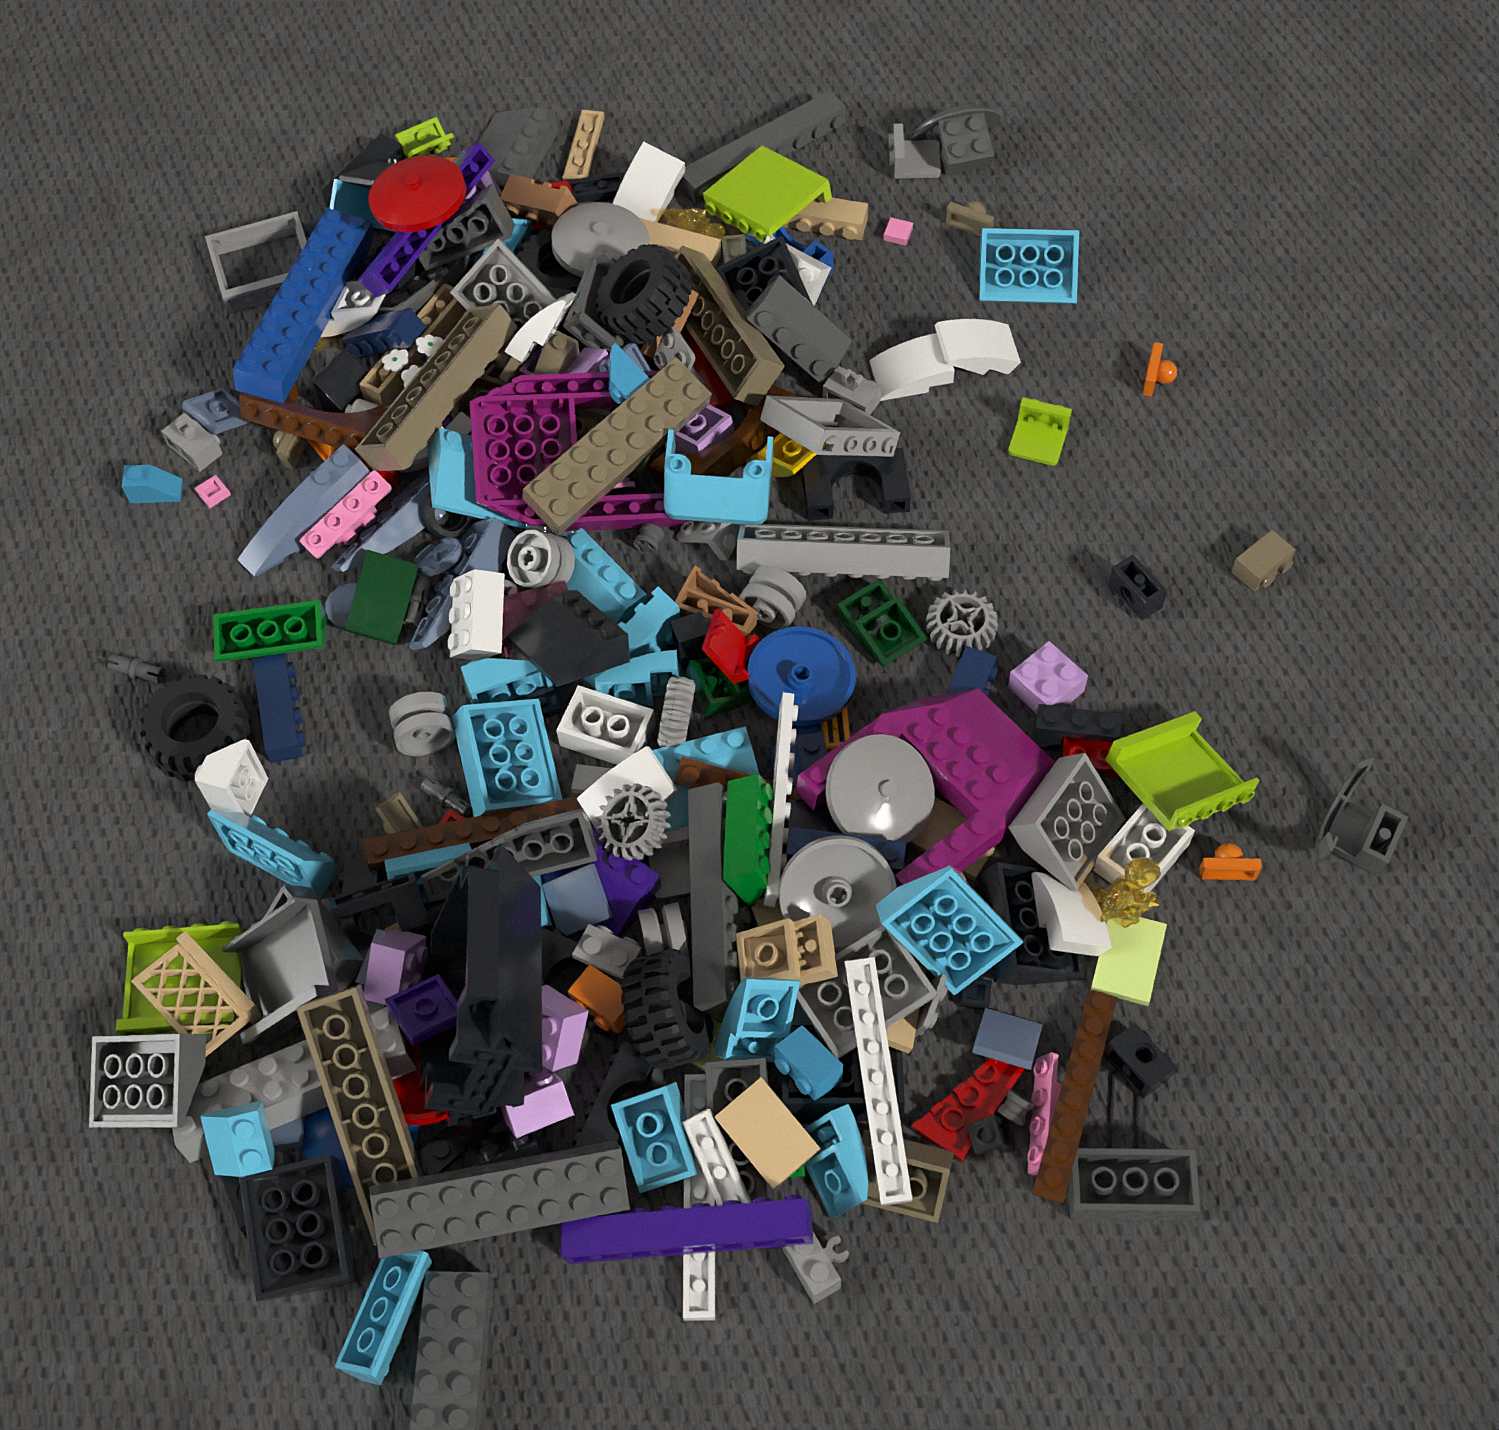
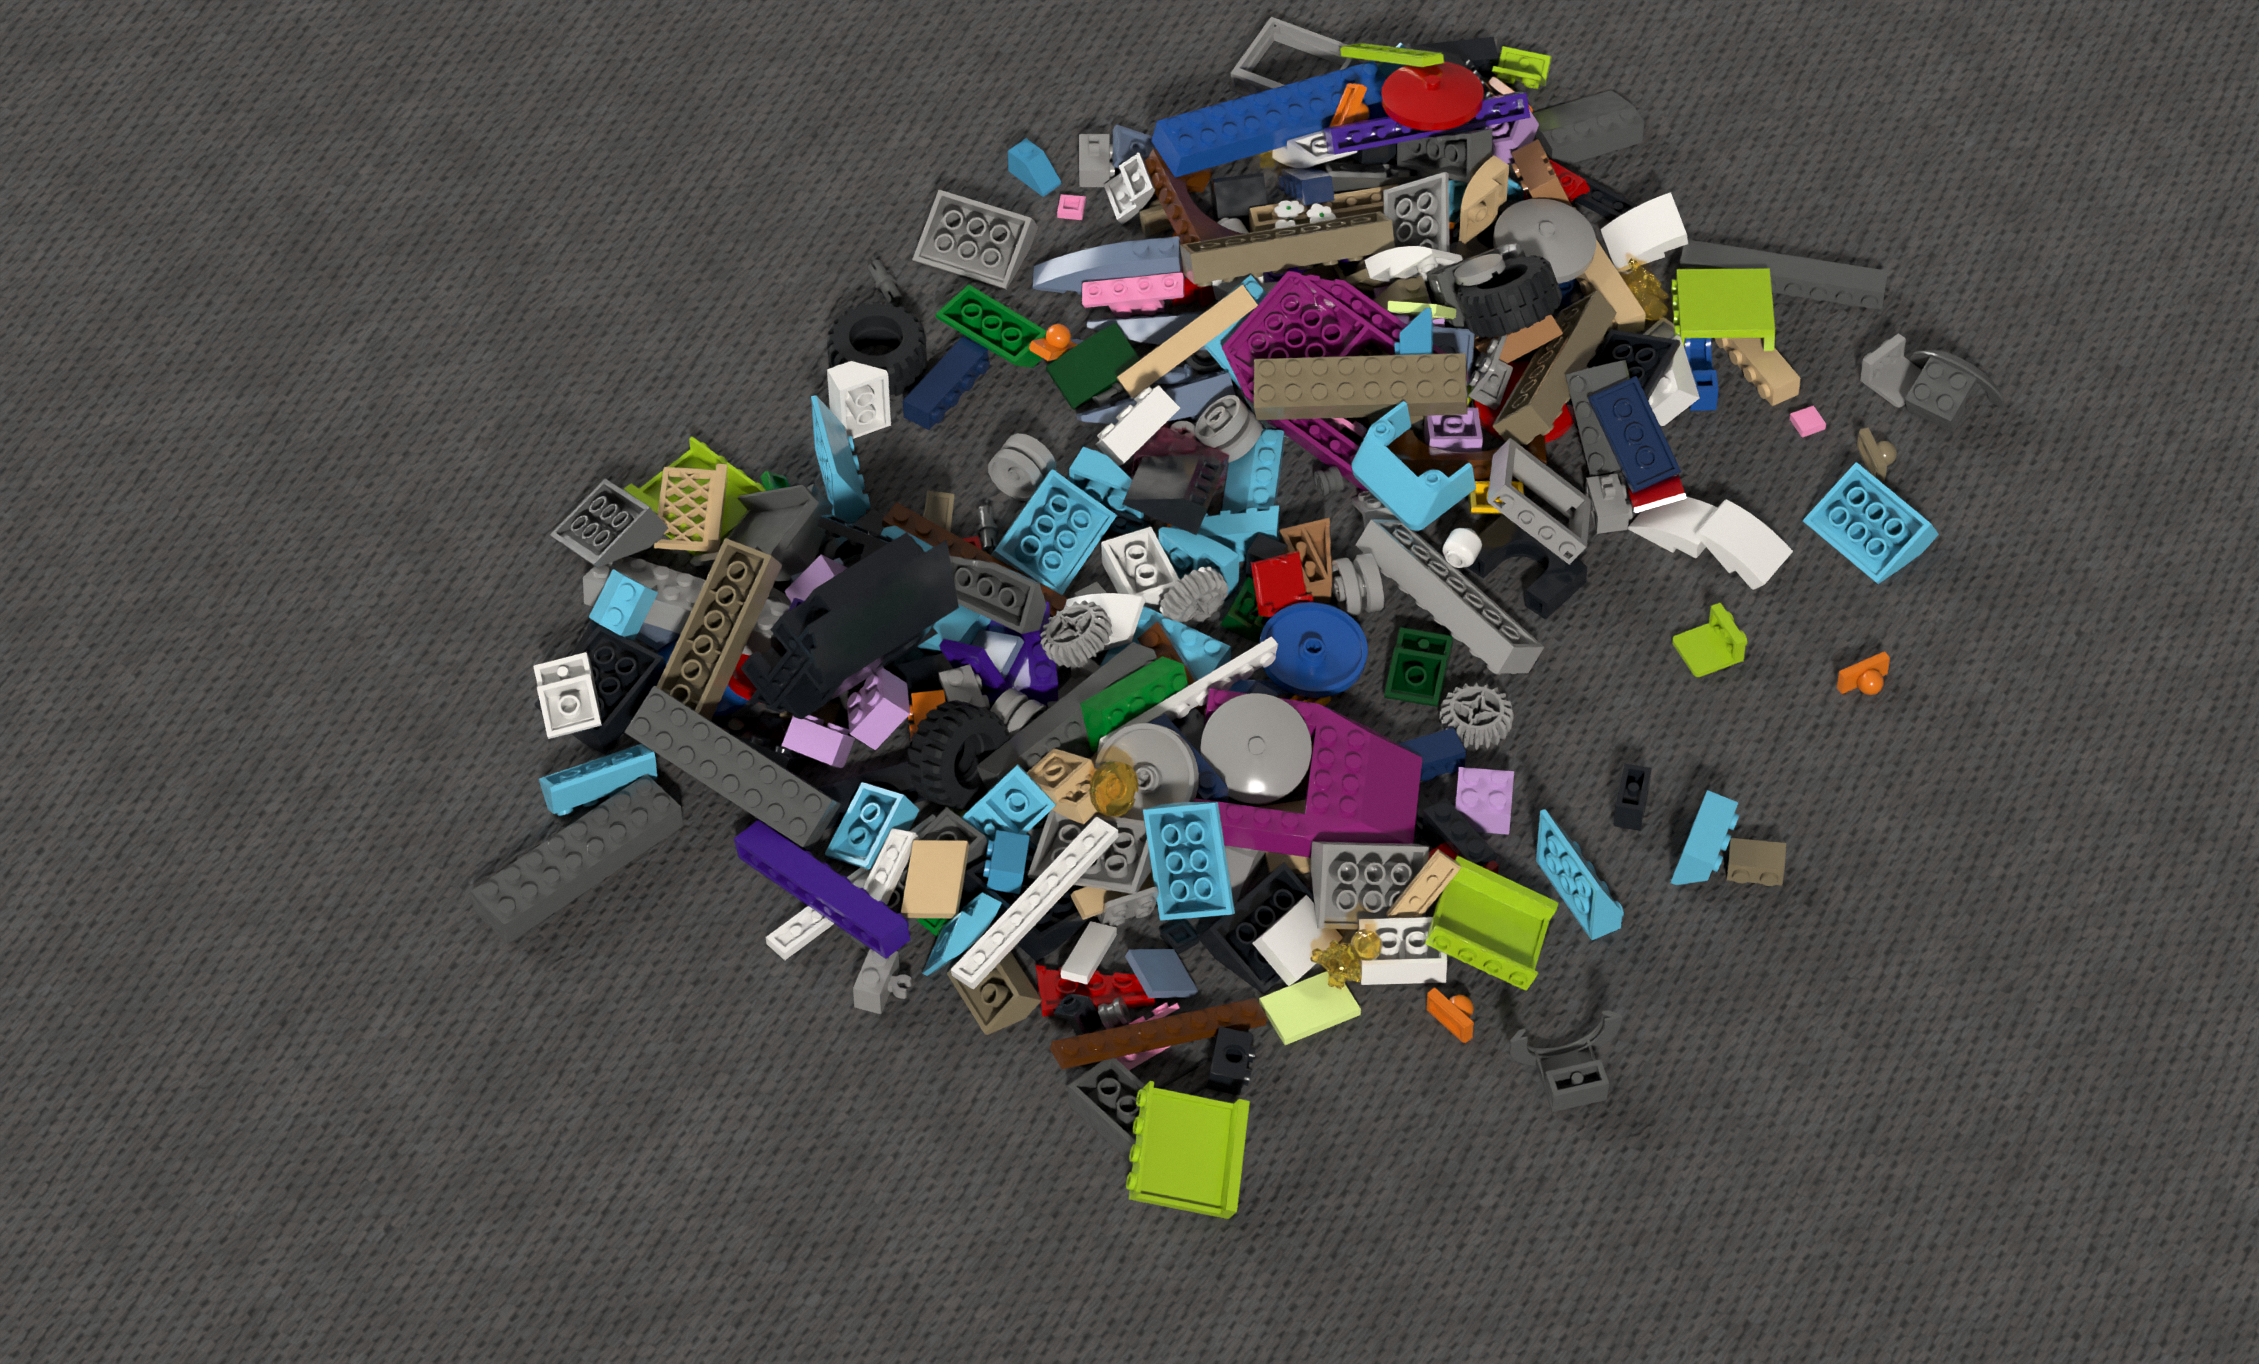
camera: 45 degrees right, 10 degrees down
(169, 577) = (975, 239): none -> light grey slope
(237, 910) = (773, 481): none -> green tile
(248, 440) = (1130, 188): none -> light grey slope
(287, 1270) = (568, 695): none -> white slope
(334, 605) = (1054, 344): none -> orange tile
(344, 190) = (1392, 54): none -> lime tile
(356, 251) = (1351, 107): none -> orange tile
(443, 519) = (1187, 341): none -> tan tile
(531, 239) = (1483, 197): none -> tan slope
(575, 923) = (963, 654): none -> dark purple tile
(583, 145) = (1646, 167): tan tile -> none
(591, 354) = (1415, 309): none -> yellowish green tile
(602, 290) = (1479, 269): none -> light grey tile
(812, 506) = (1462, 547): none -> white head
(831, 927) = (1113, 788): none -> clear yellow tile
(832, 325) = (1634, 434): none -> dark blue tile
(878, 356) = (1658, 494): none -> red slope
(938, 1076) = (1088, 952): none -> white tile
(1116, 789) = (1425, 887): none -> tan tile
(1186, 683) = (1576, 880): none -> medium azure slope
(1223, 576) = (1706, 839): none -> medium azure slope
(1224, 1171) = (1187, 1152): none -> lime panel

